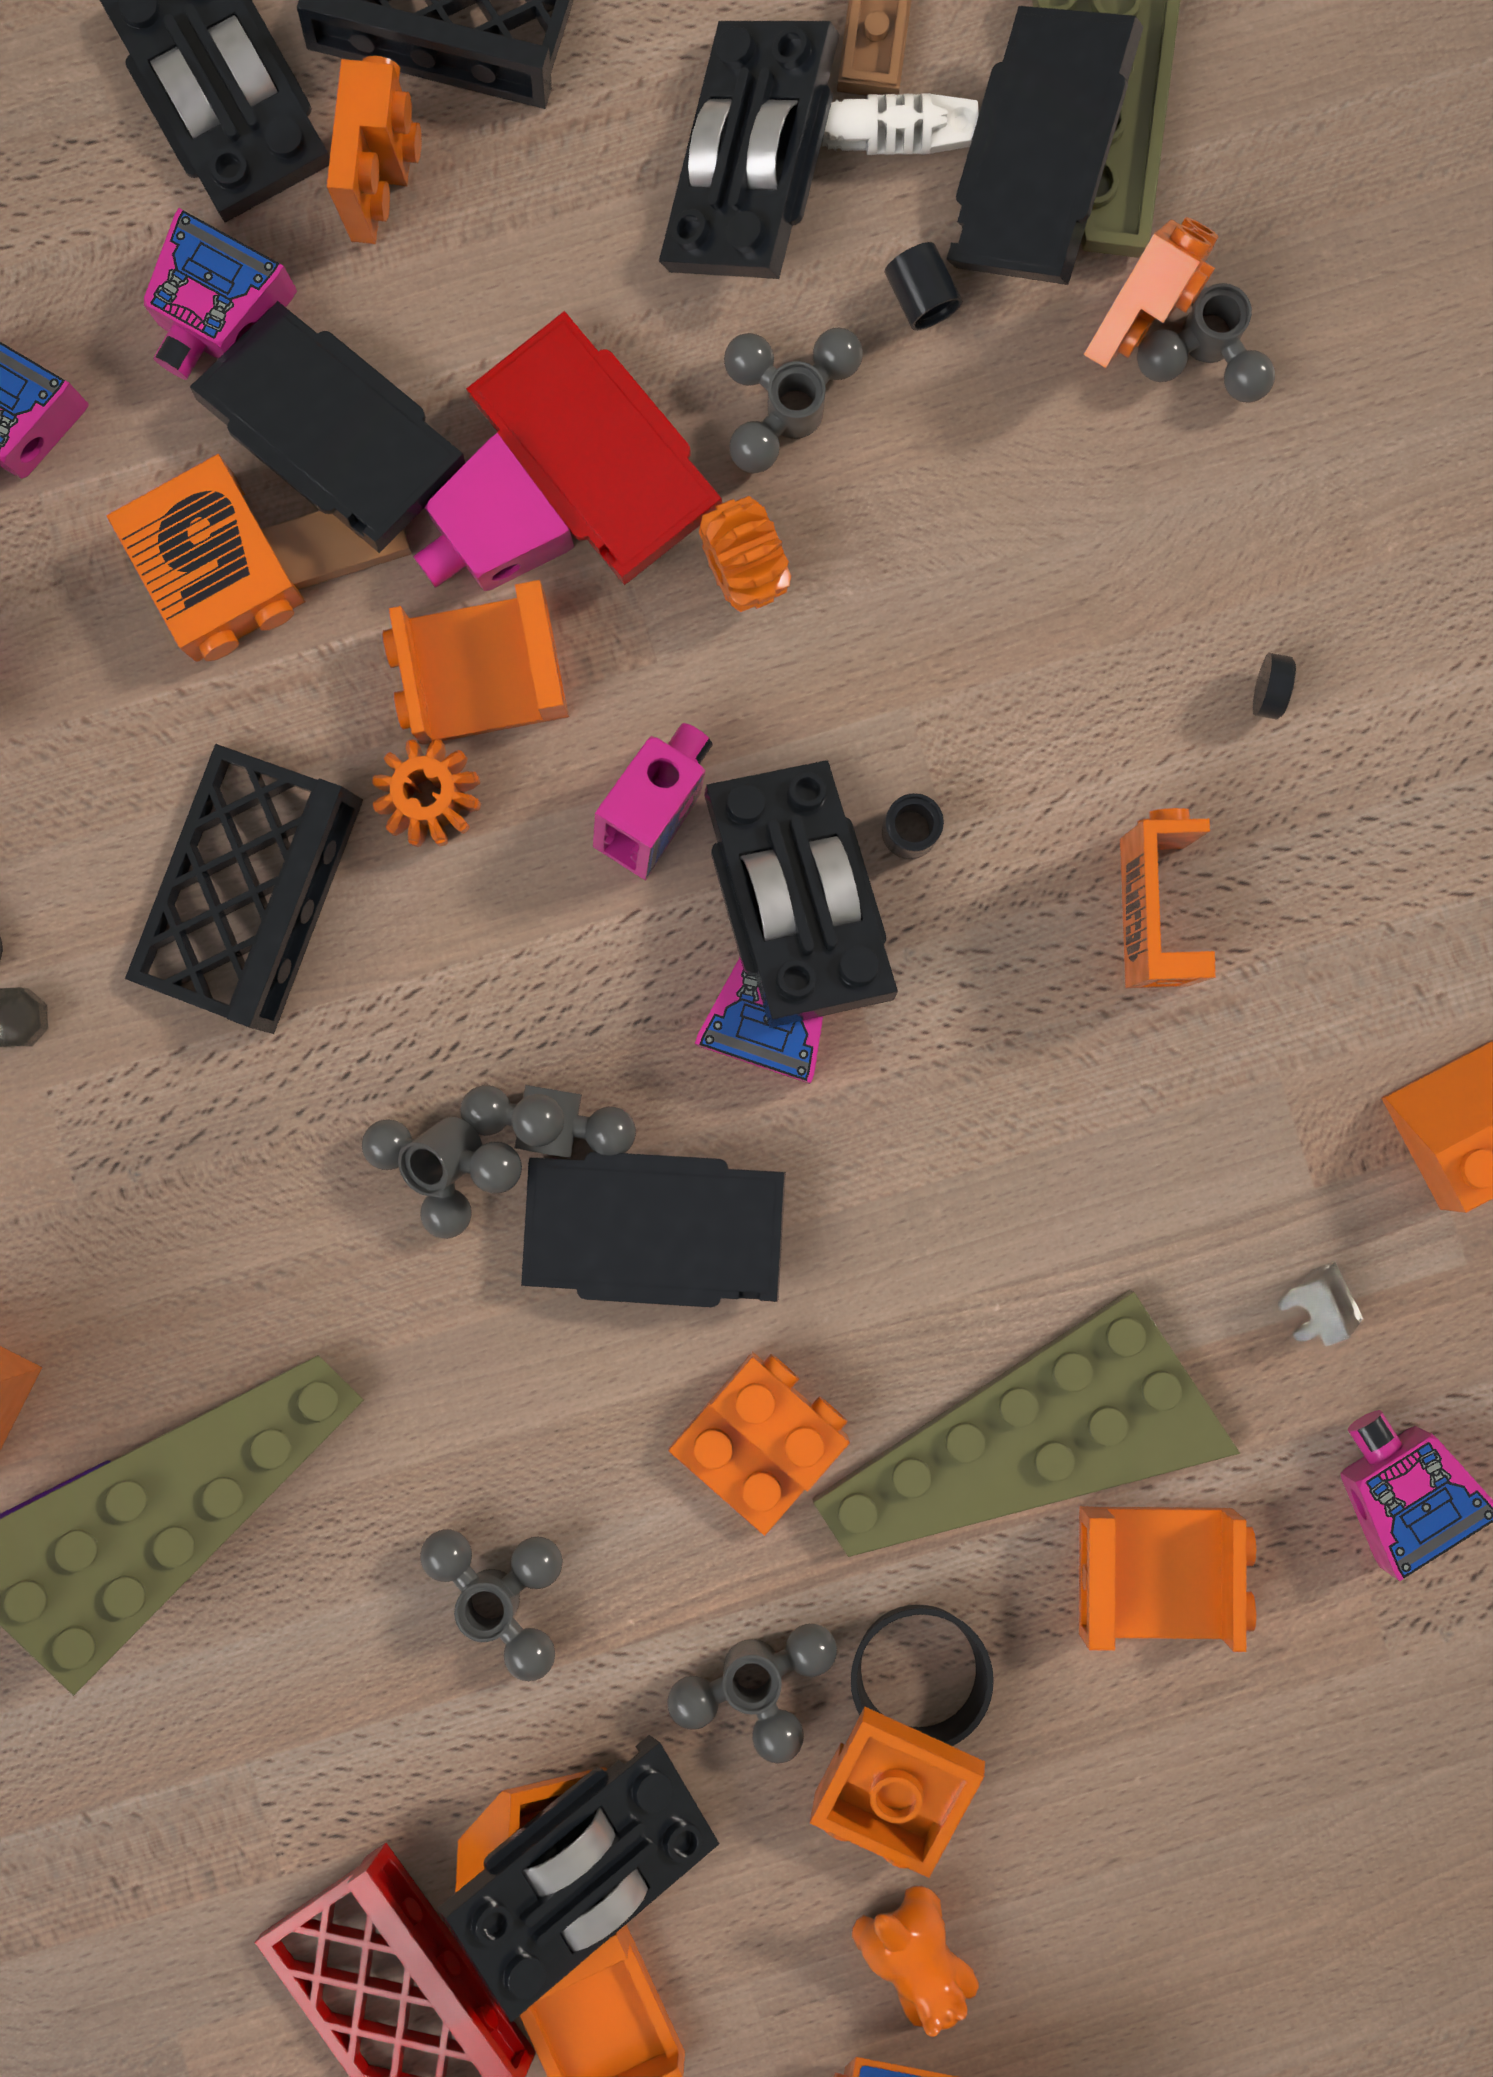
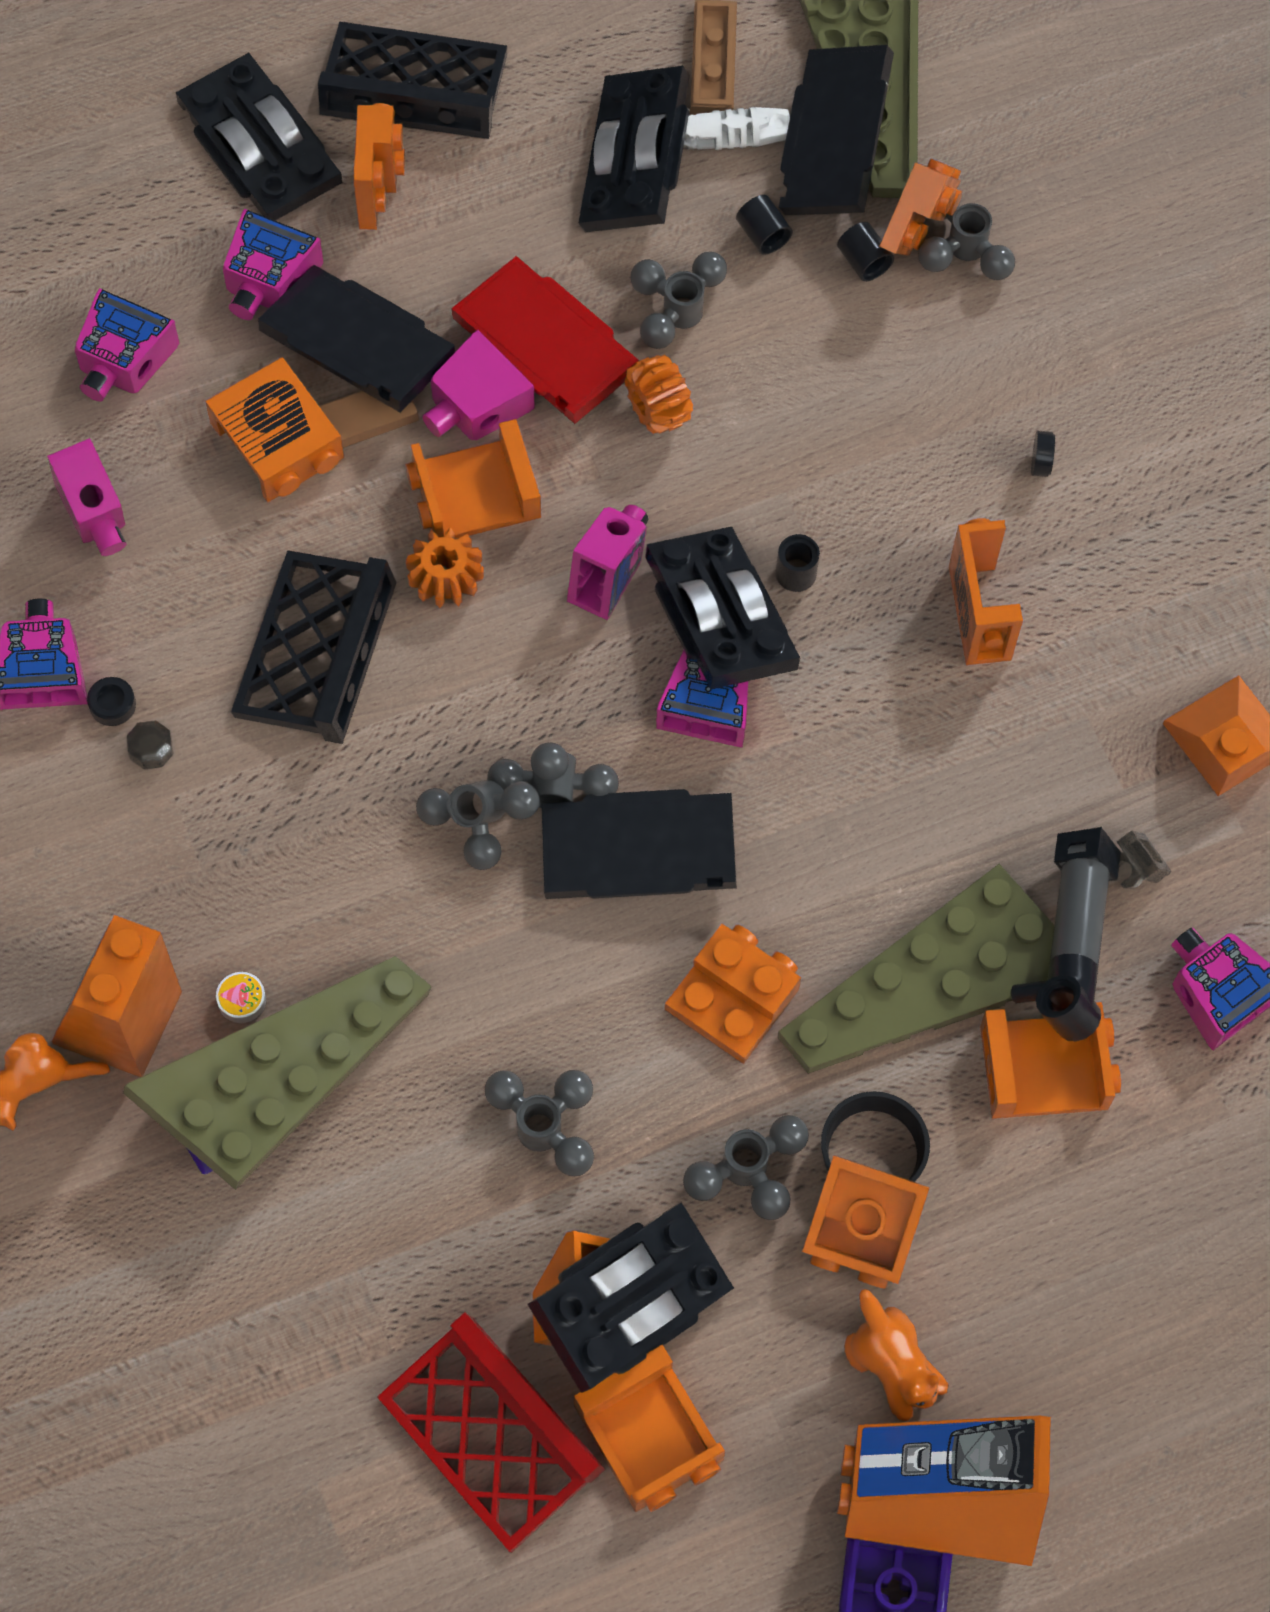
camera: 10 degrees left, 20 degrees down
(115, 1388) = (241, 997): none -> tile
(1060, 341) = (862, 251): none -> black beam
(1226, 1422) = (1067, 997): none -> piece

